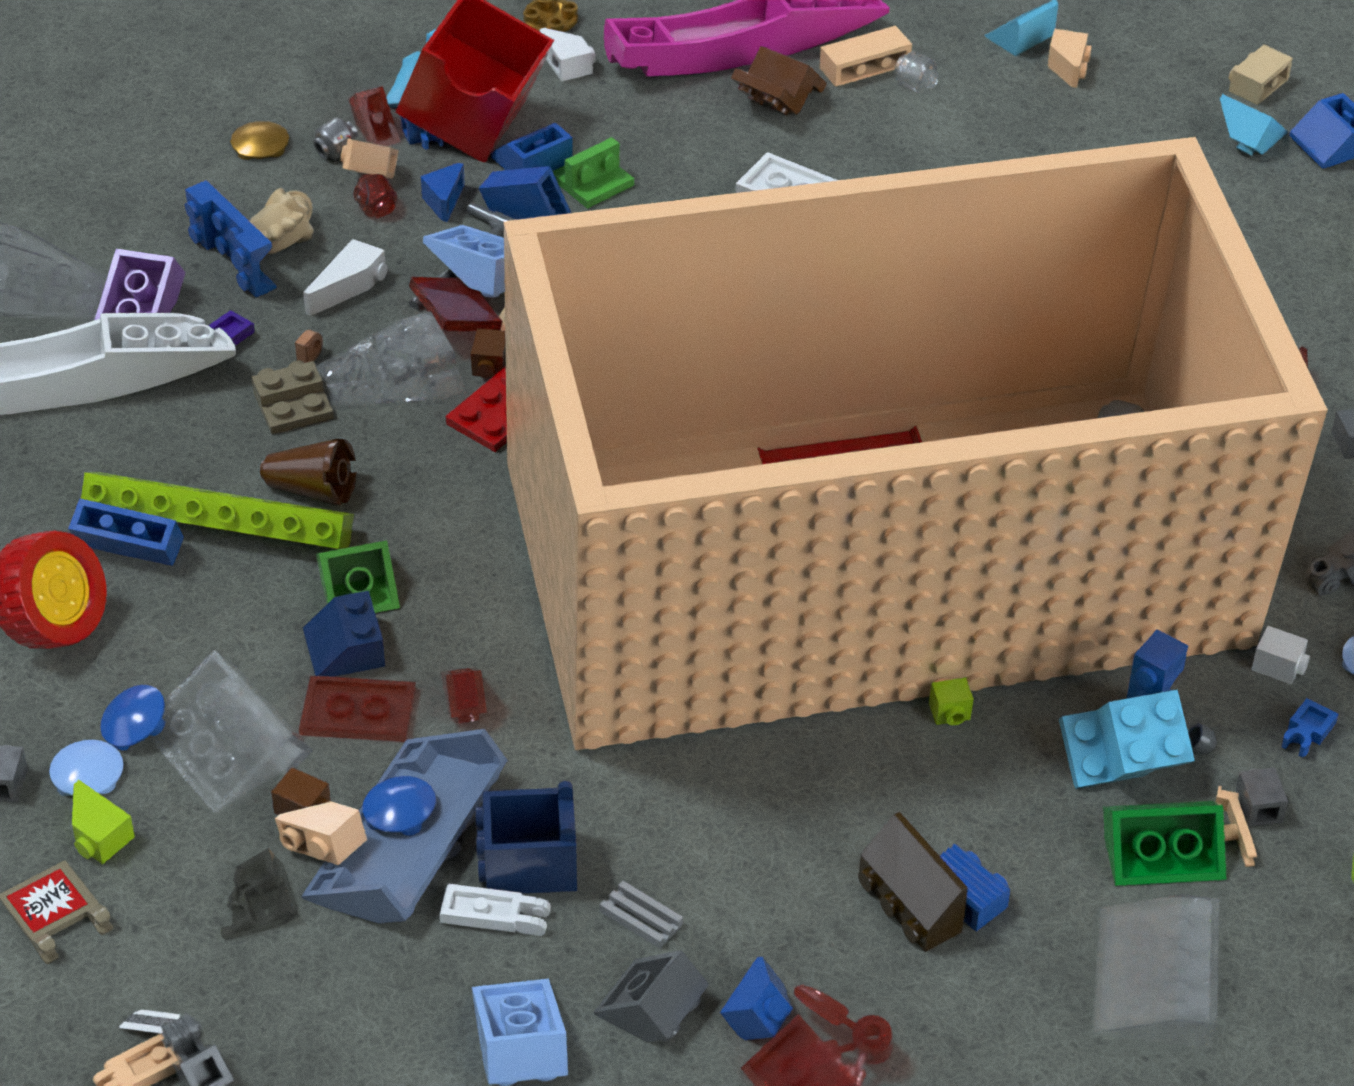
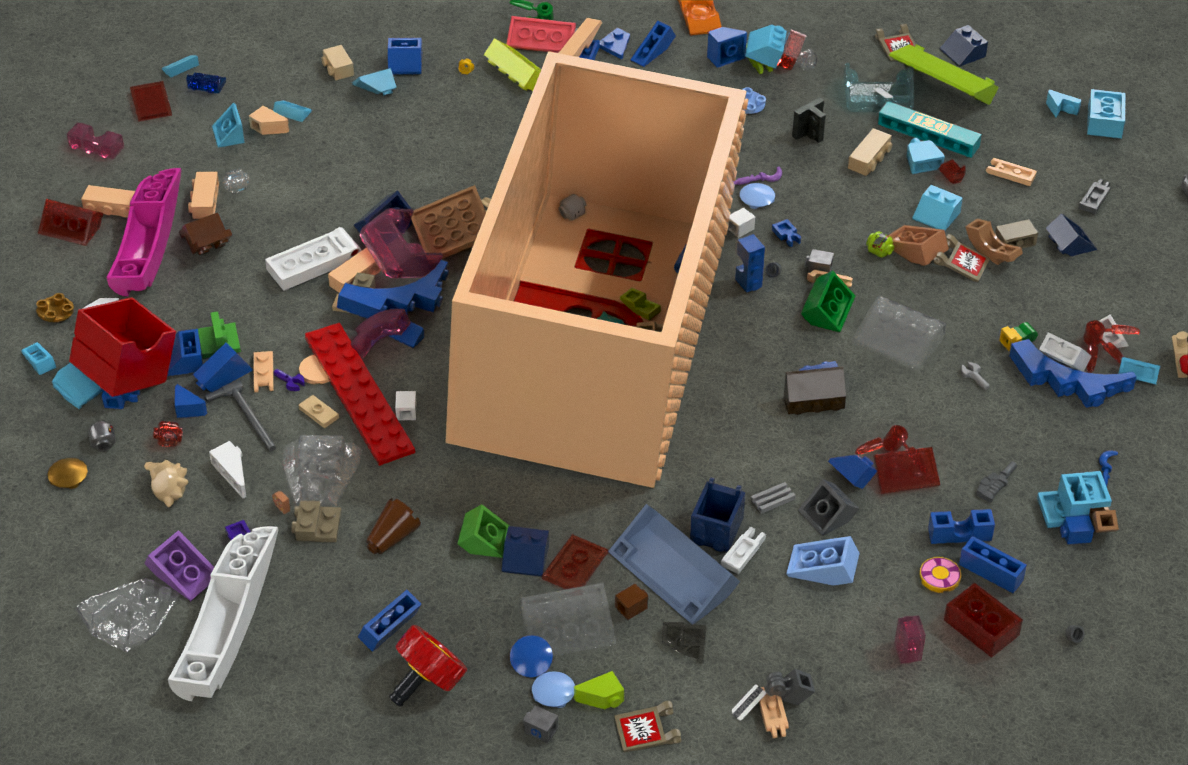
camera: 65 degrees left, 0 degrees up
(220, 225) = (167, 502): blue piece -> none
(221, 510) = (395, 577): lime brick -> none
(322, 831) = (663, 597): light nougat slope -> none
(369, 158) = (138, 424): light nougat slope -> none
(374, 116) = (91, 410): clear red slope -> none
(399, 805) = (657, 564): blue dish -> none
(455, 304) = (294, 426): clear red tile -> none
(464, 693) = (593, 514): clear red slope -> none
(472, 256) = (267, 401): light blue slope -> none
(488, 353) = (343, 425): reddish brown brick -> none
(951, 701) = (706, 340): lime plate -> none
(1121, 72) = (291, 110): none -> medium azure slope
(1126, 739) = (772, 287): medium azure bracket -> none

